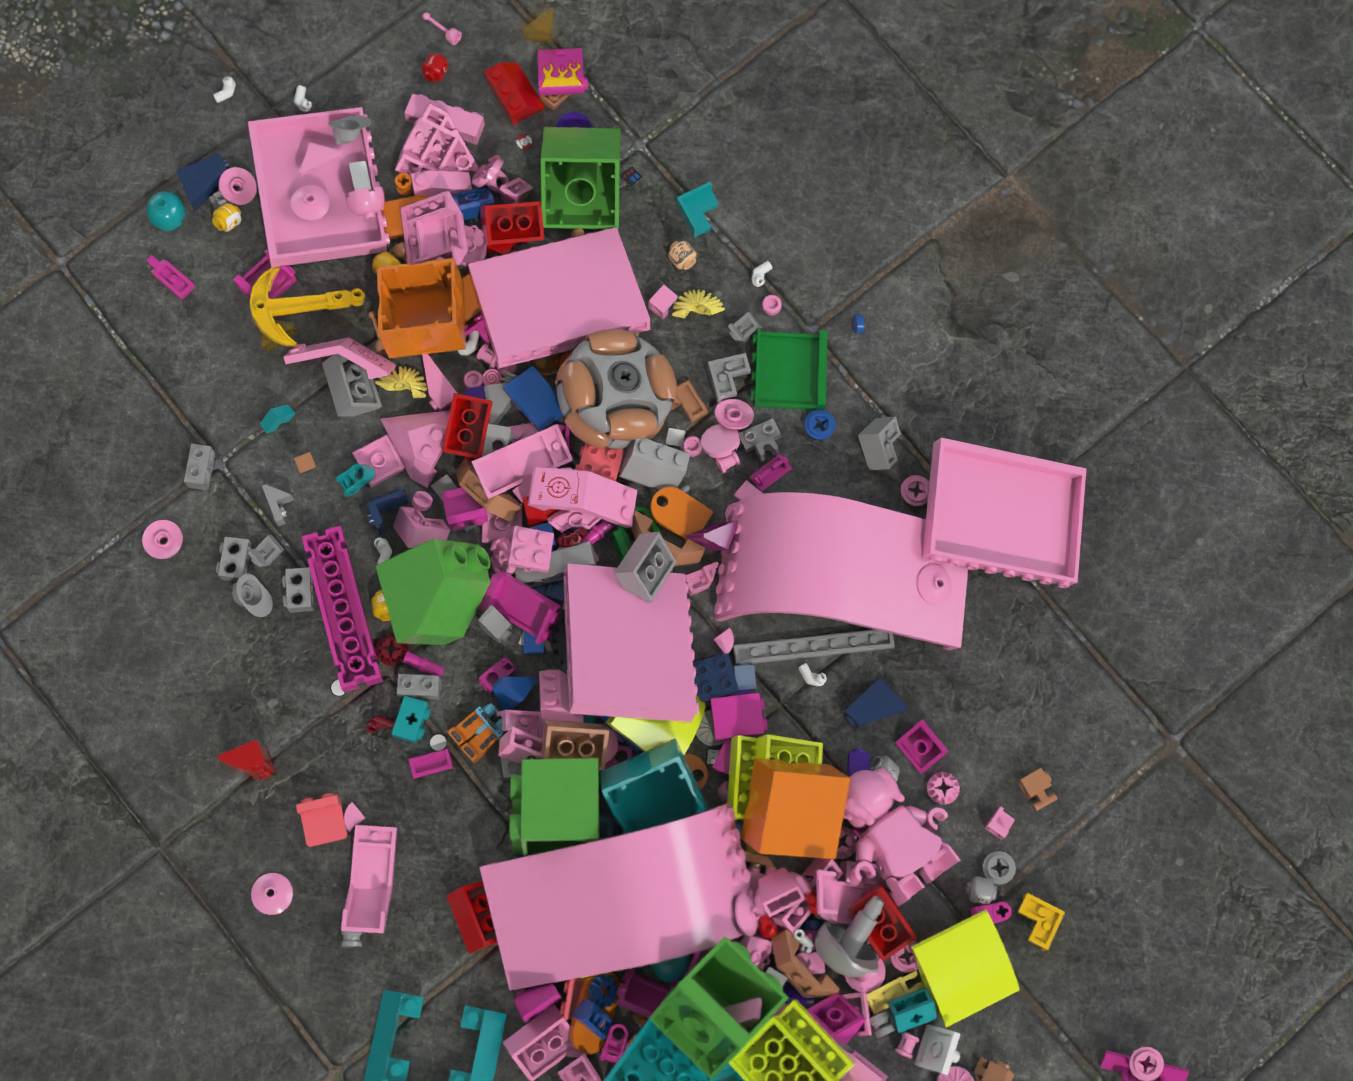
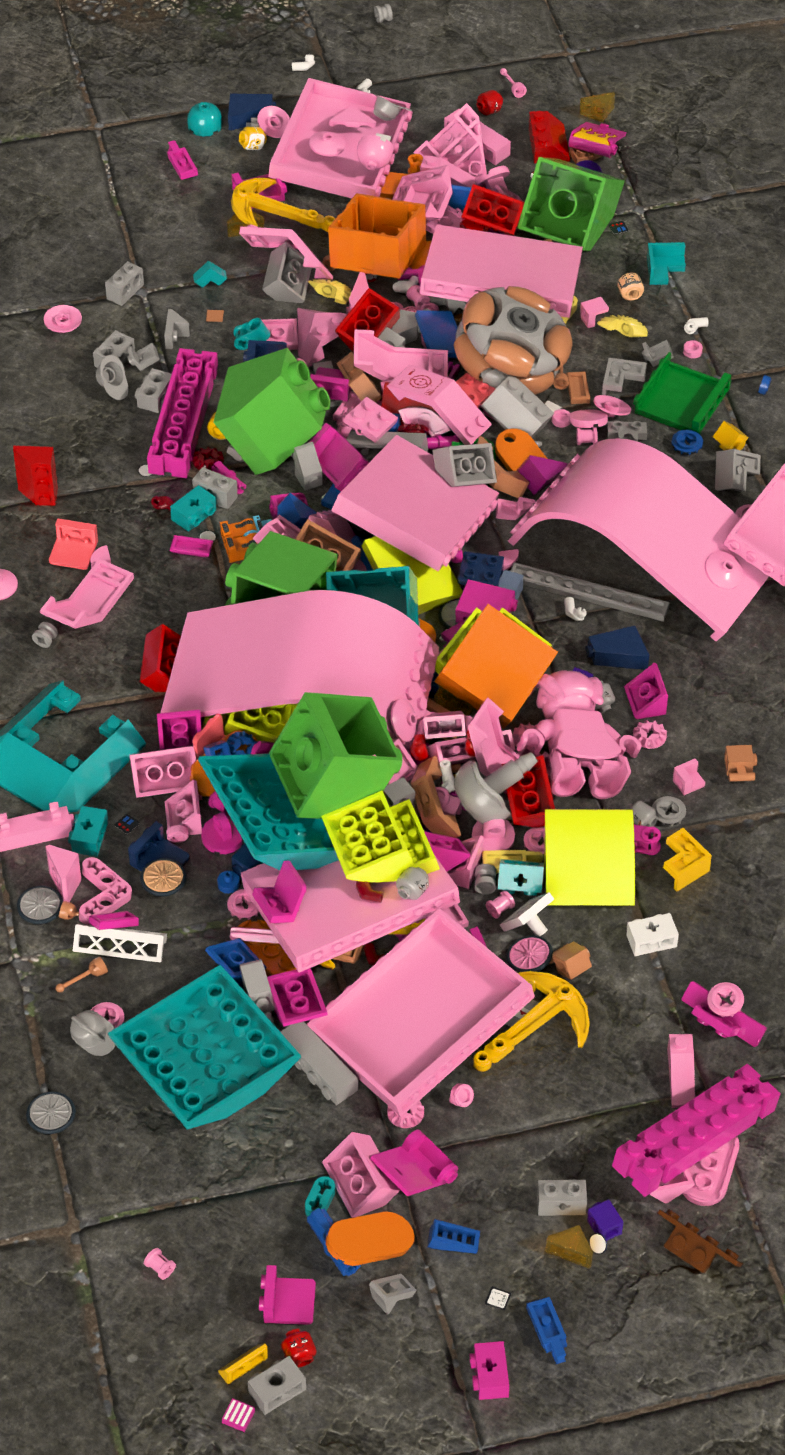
camera: 30 degrees right, 25 degrees down
(859, 406) = (730, 437): none -> yellow brick
(1059, 1009) = (652, 934): none -> white brick

